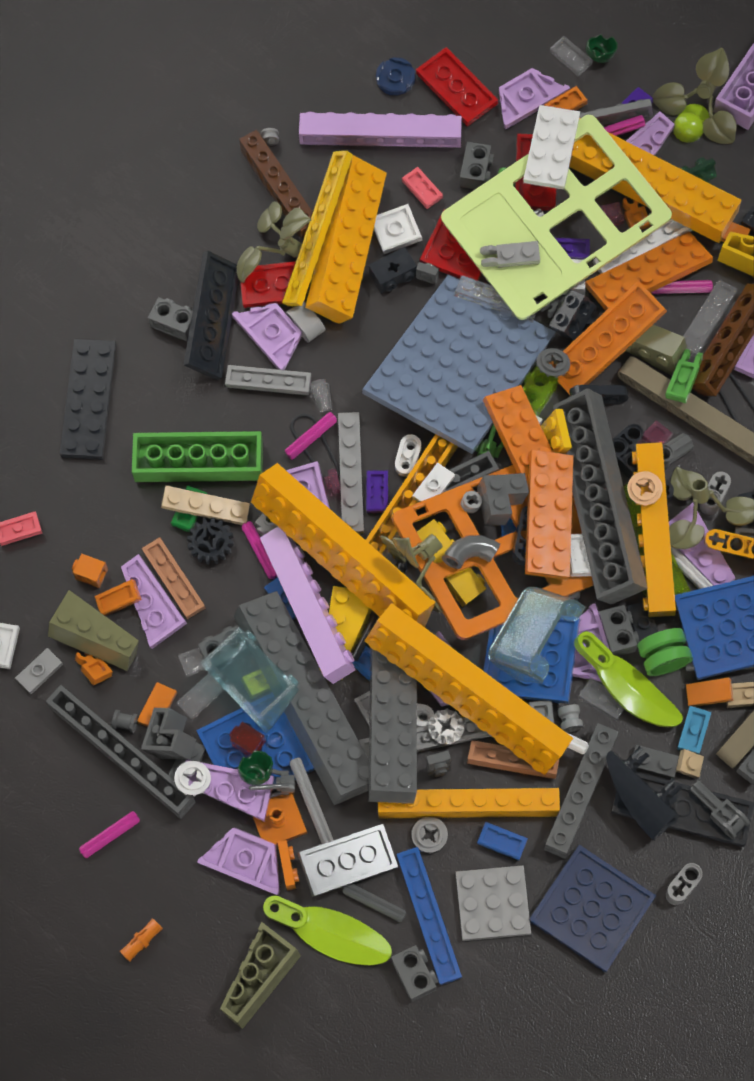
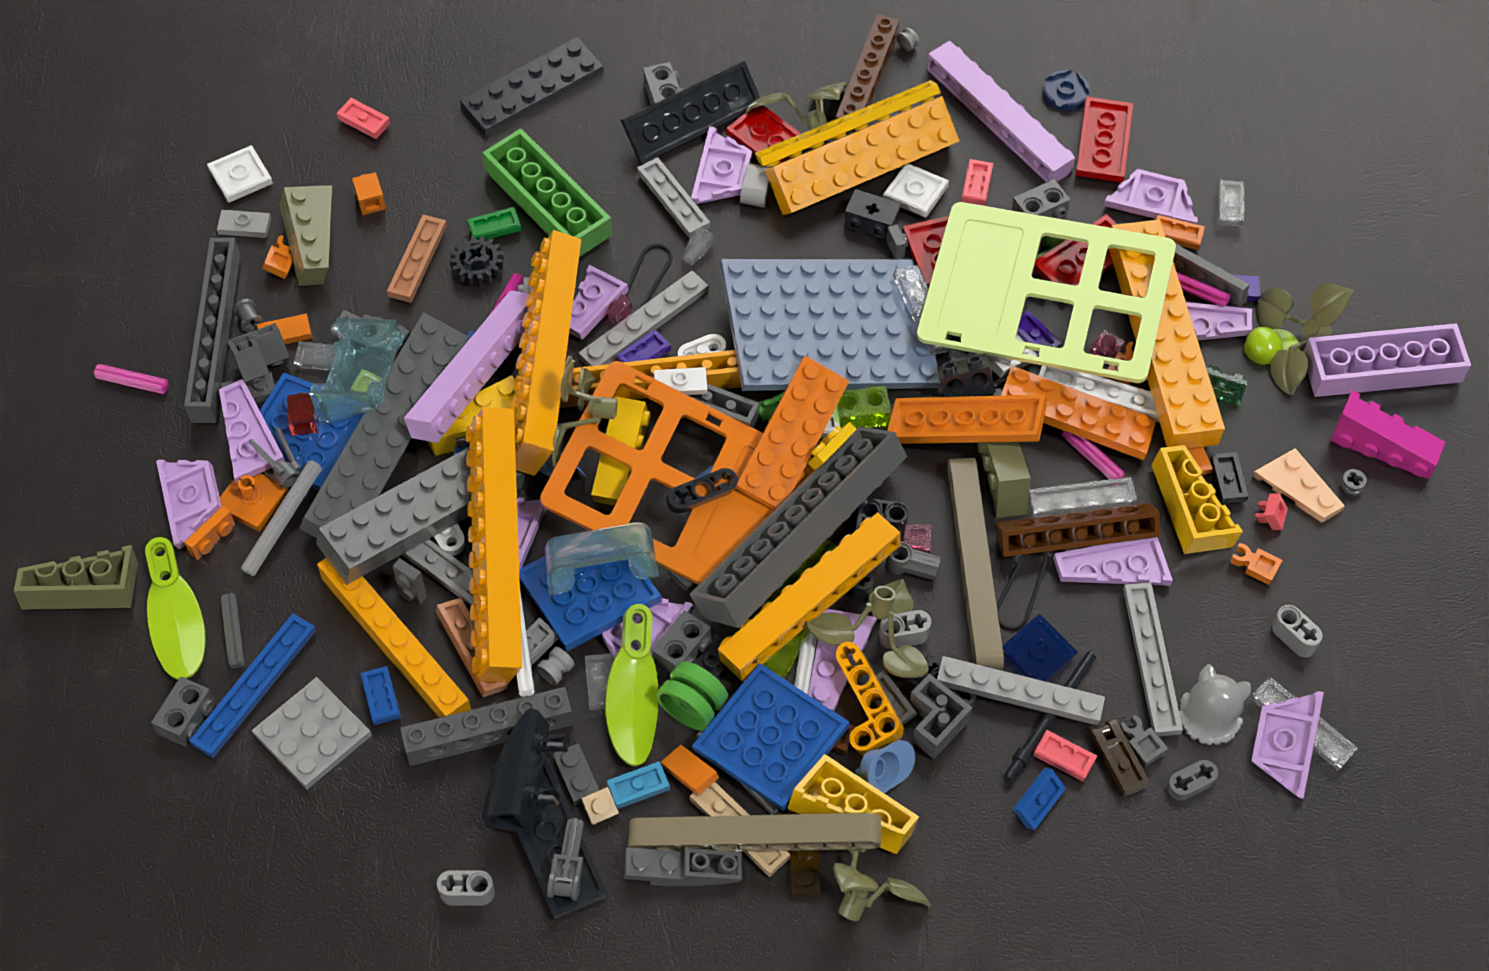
camera: 45 degrees right, 10 degrees down
(118, 597) = (361, 230): orange tile -> none
(141, 940) = (47, 470): orange pin -> none
(156, 610) = (380, 259): lavender wing -> none
(187, 770) = (232, 384): white gear -> none
(205, 505) = (504, 229): tan plate -> none
(256, 768) = (273, 433): dark green hair -> none
(310, 435) = (649, 264): dark pink axle -> none
(347, 860) = (251, 575): plate -> none
(431, 824) = (332, 620): light grey gear -> none
(448, 736) = (444, 571): white gear -> none
(467, 497) = (695, 414): light grey bush -> none
(470, 547) = (637, 444): dark grey cylinder -> none
(498, 495) = (718, 434): dark grey brick -> none
(511, 254) = (971, 281): light grey hinge -> none
(549, 514) = (737, 492): orange plate -> none
(551, 147) = (1108, 234): white plate -> none
(558, 358) = (897, 386): dark grey gear -> none
(578, 558) = (721, 548): white plate -> none
(592, 908) = (374, 823): dark blue plate -> none
(601, 49) = (1263, 219): dark green hair -> none
(610, 393) = (916, 464): black beam -> none
(642, 479) = (825, 547): light nougat gear -> none
(684, 377) = (995, 511): bright green hinge -> none

